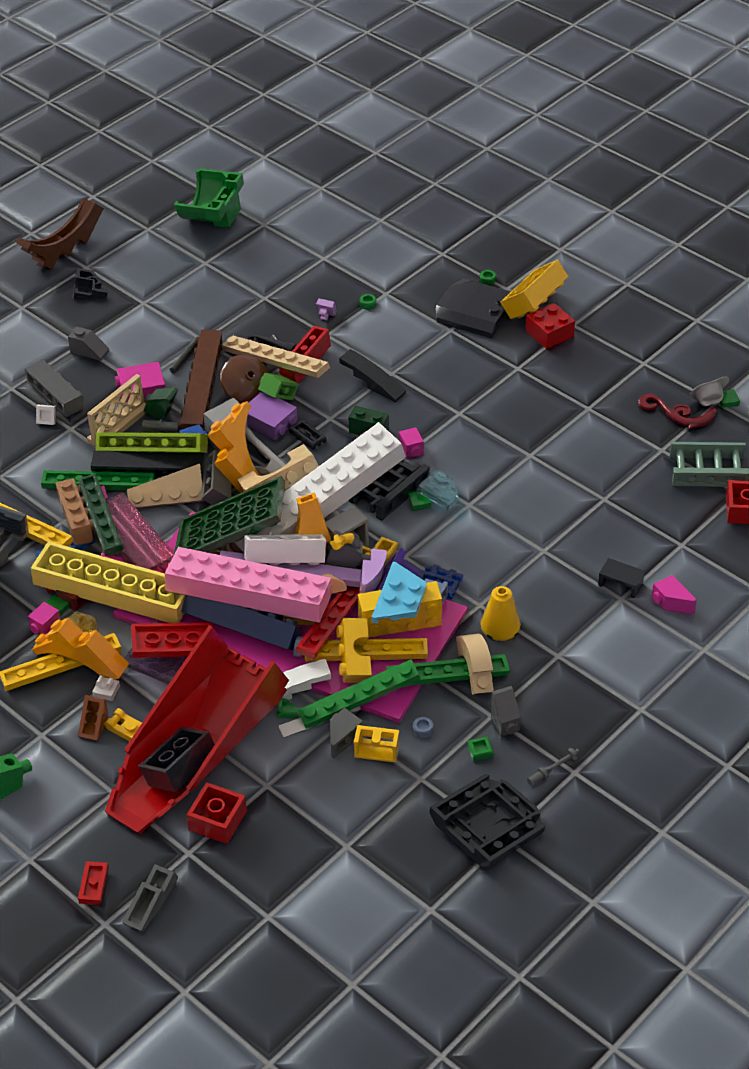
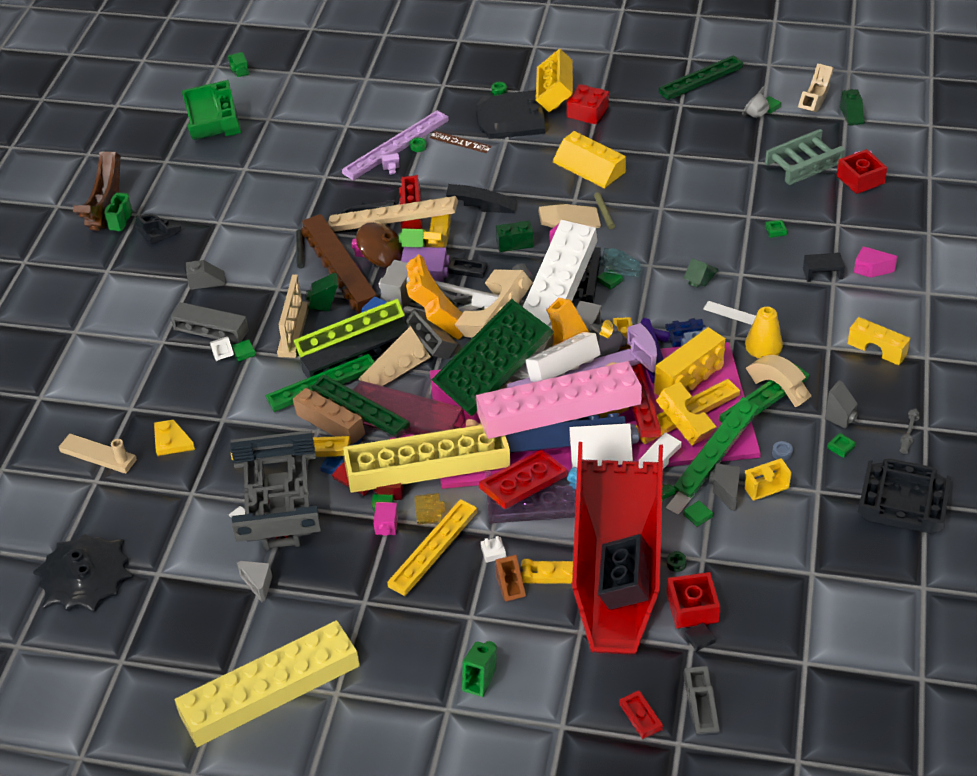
camera: 30 degrees left, 0 degrees up
(64, 424) = (243, 350): none -> green tile
(66, 258) = (118, 211): none -> green brick
(86, 648) = (439, 522): light orange arch -> none
(150, 377) = (275, 285): dark pink brick -> none
(160, 426) = (335, 314): dark grey axle -> none
(201, 847) = (700, 636): none -> black tile
(241, 780) = (676, 555): none -> dark green bush
(260, 641) = (602, 443): none -> white tile
(279, 162) = (238, 64): none -> green brick
(297, 744) = (698, 513): none -> green tile
(307, 392) = (439, 231): none -> yellow arch
(349, 293) = (394, 145): none -> lavender tile
(400, 595) = (692, 350): medium azure wing -> none
(408, 314) = (460, 142): none -> reddish brown sticker
(434, 427) = (553, 214): none -> tan piece
(474, 434) = (604, 210): none -> olive bar
(498, 579) = (730, 312): none -> white sticker
(501, 531) = (699, 273): none -> dark green slope
(502, 381) = (590, 159): none -> yellow slope
(610, 678) = (893, 344): none -> yellow arch
(616, 522) = (776, 228): none -> green tile
(673, 414) = (743, 130): dark red plant -> none
(685, 343) = (700, 77): none -> dark green plate

